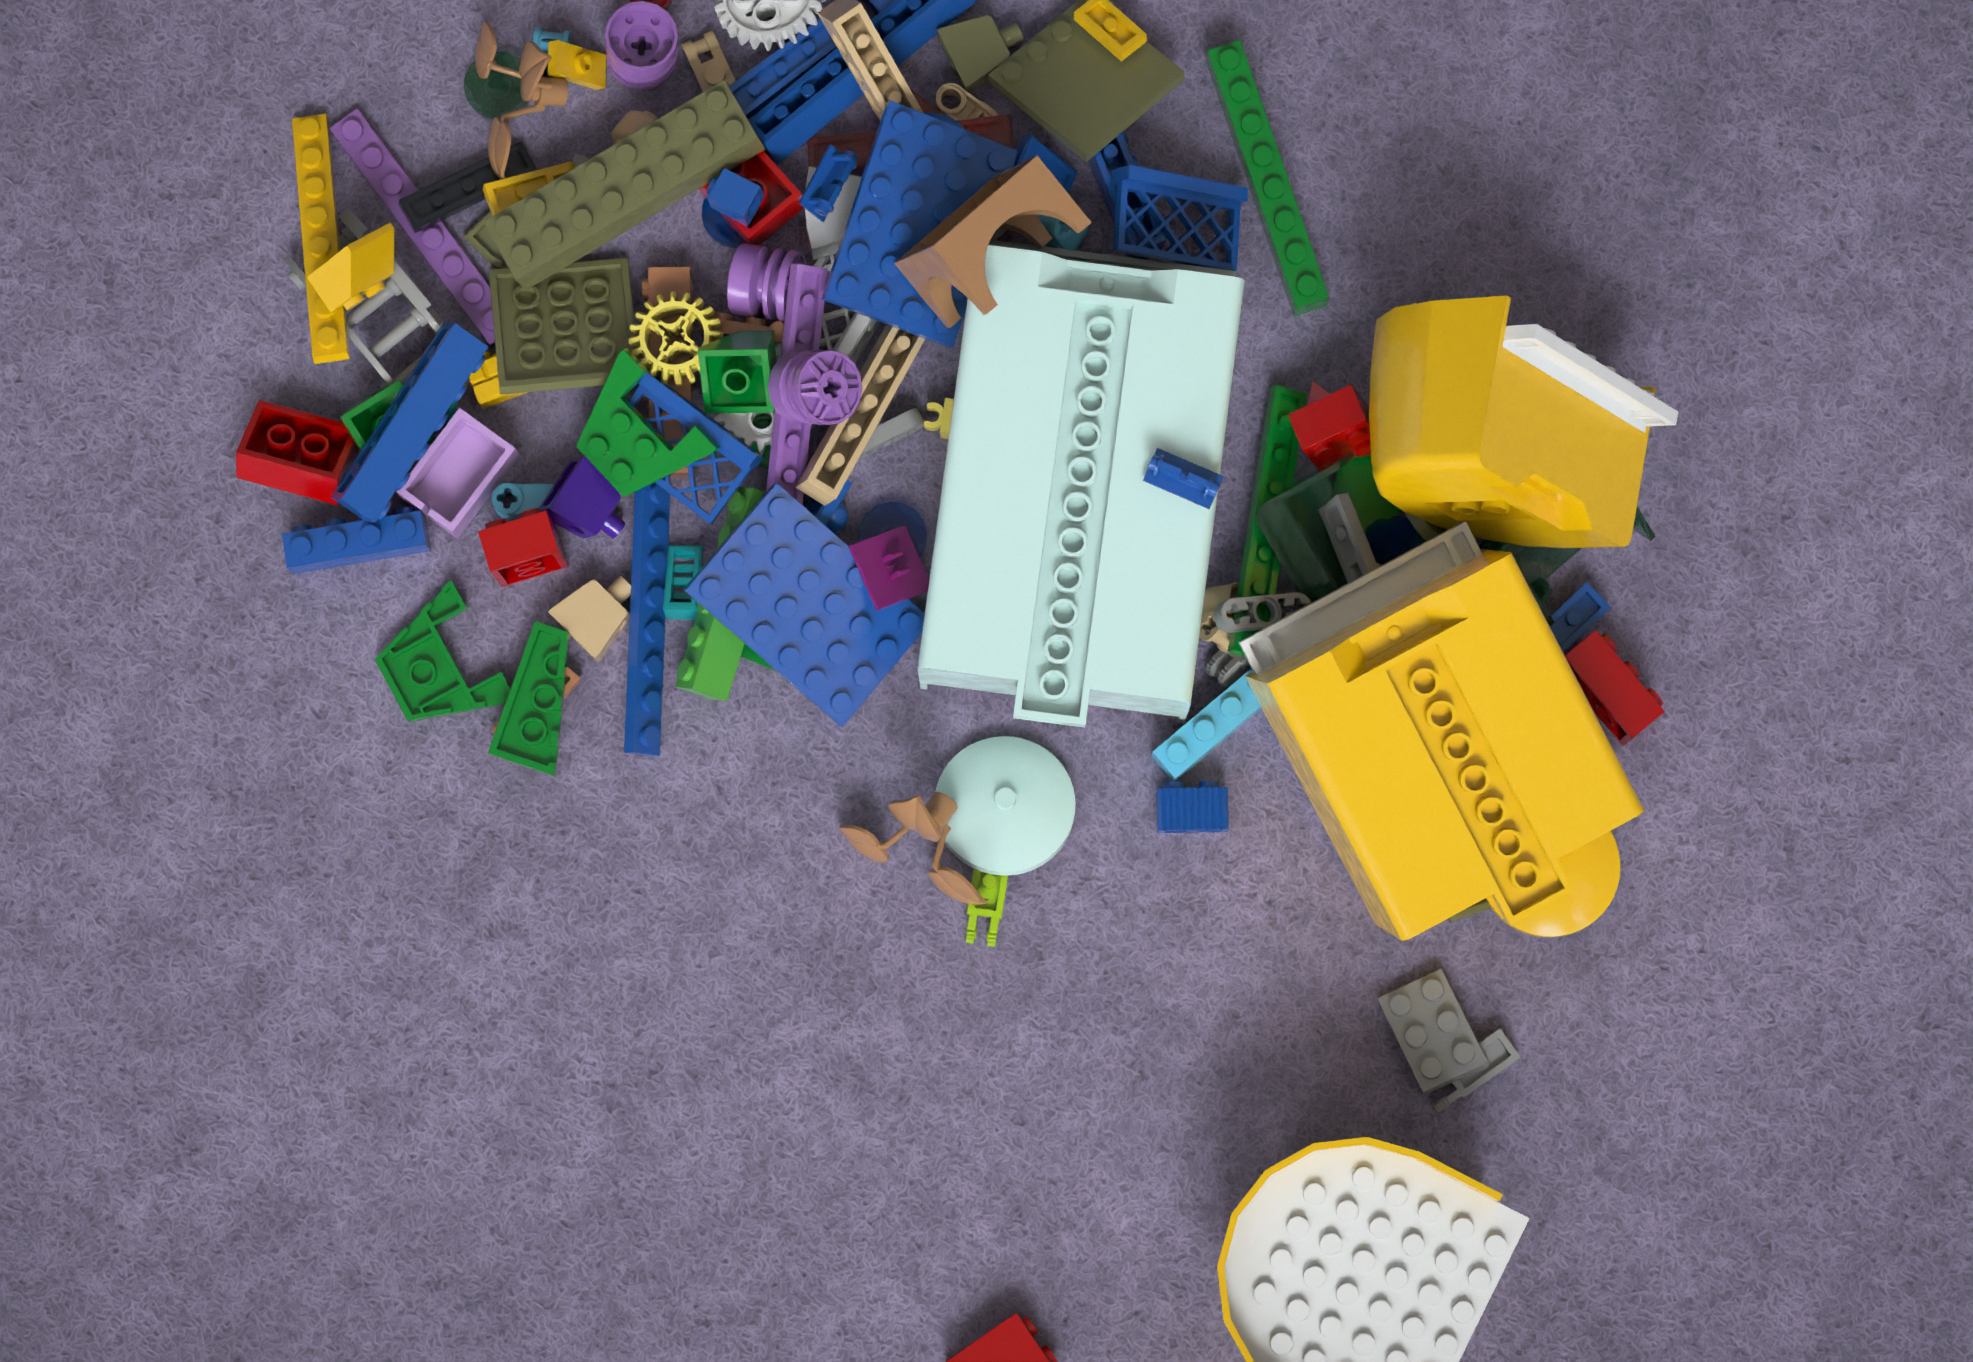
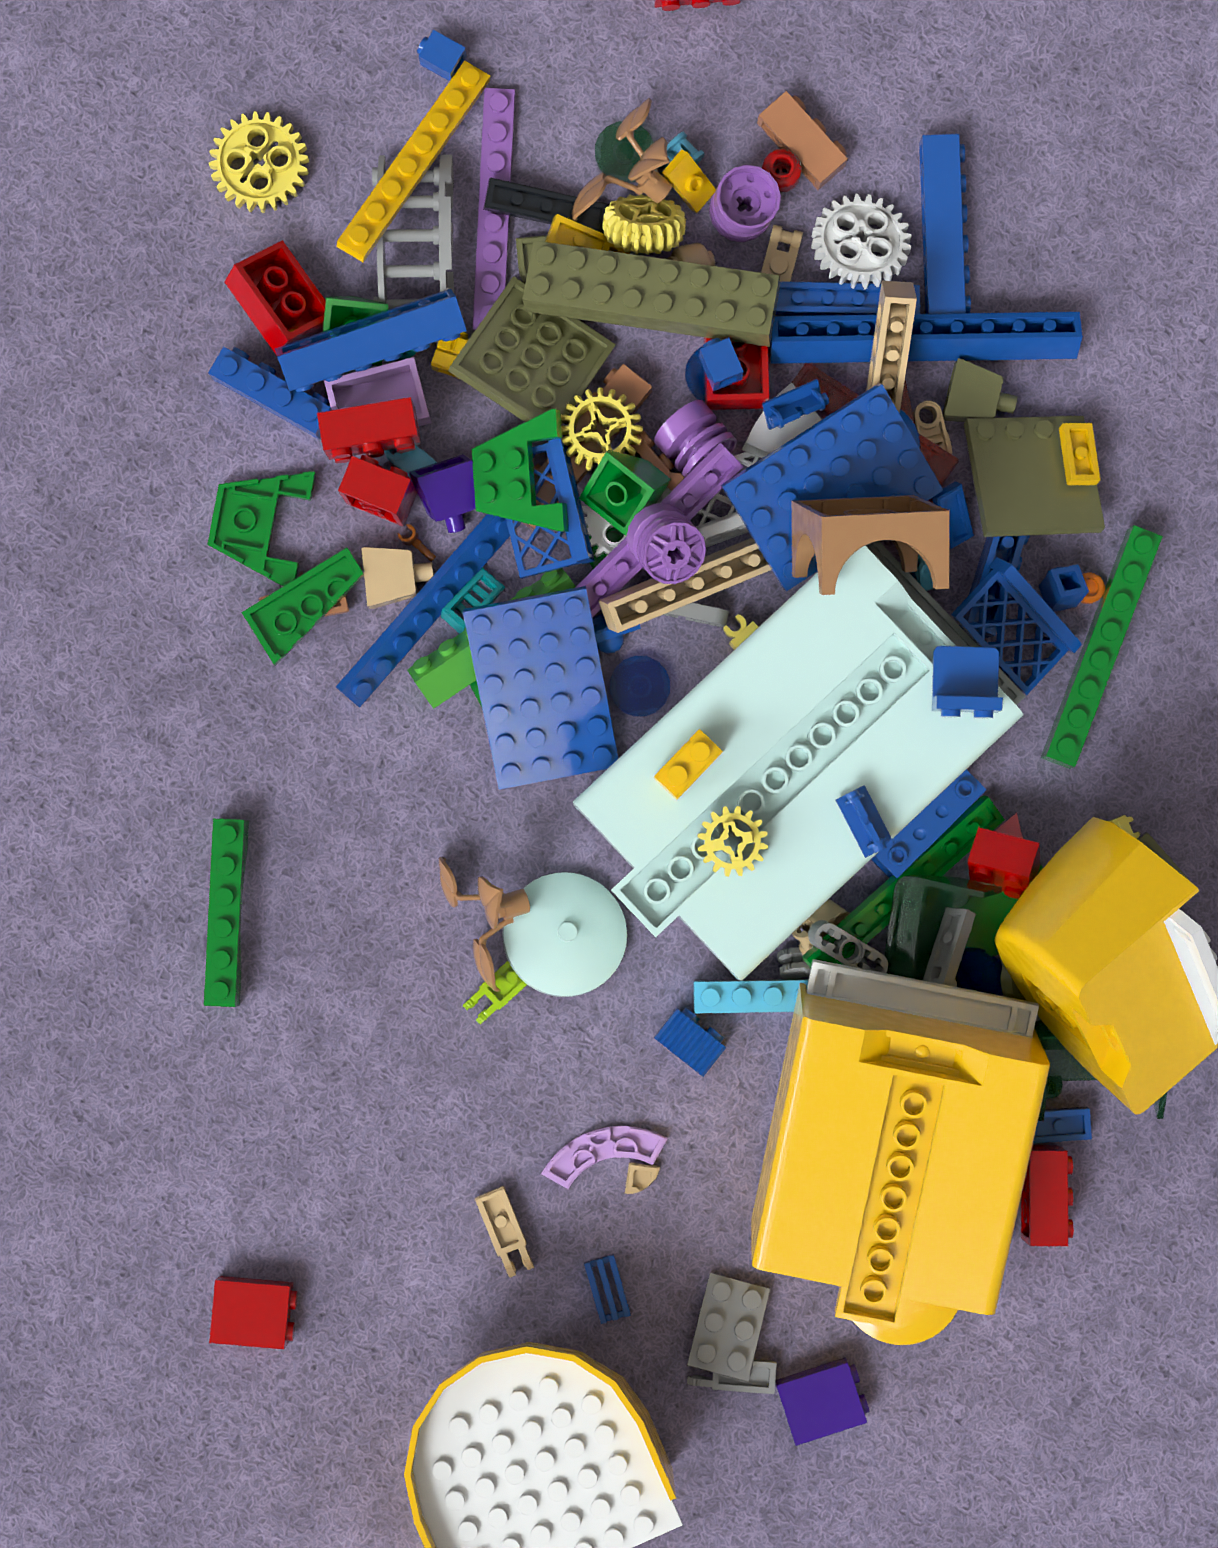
camera: 35 degrees right, 5 degrees up
(212, 350) = (280, 179): none -> light yellow gear
(268, 130) = (441, 55): none -> blue brick
(356, 270) = (416, 204): yellow slope -> none
(474, 497) = (369, 429): none -> red brick
(568, 133) = (643, 225): none -> light yellow gear
(592, 571) = (417, 543): none -> dark orange hand
(688, 1030) = (224, 912): none -> green arch
(890, 567) = (619, 708): magenta piece -> none
(991, 551) = (688, 764): none -> yellow brick
(1093, 574) = (737, 862): none -> light yellow gear
(1163, 1108) = (503, 1228): none -> tan hinge
(1171, 289) = (966, 681): none -> blue bracket
(1189, 966) = (602, 1145): none -> lavender tile
(1192, 152) = (1063, 587): none -> blue brick
(1214, 137) = (1095, 586): none -> orange tile
(1241, 450) = (929, 825): none -> blue fence
(1246, 965) = (640, 1177): none -> tan tile
(1324, 1105) = (614, 1315): none -> blue tile
(1567, 1029) = (822, 1401): none -> dark purple brick

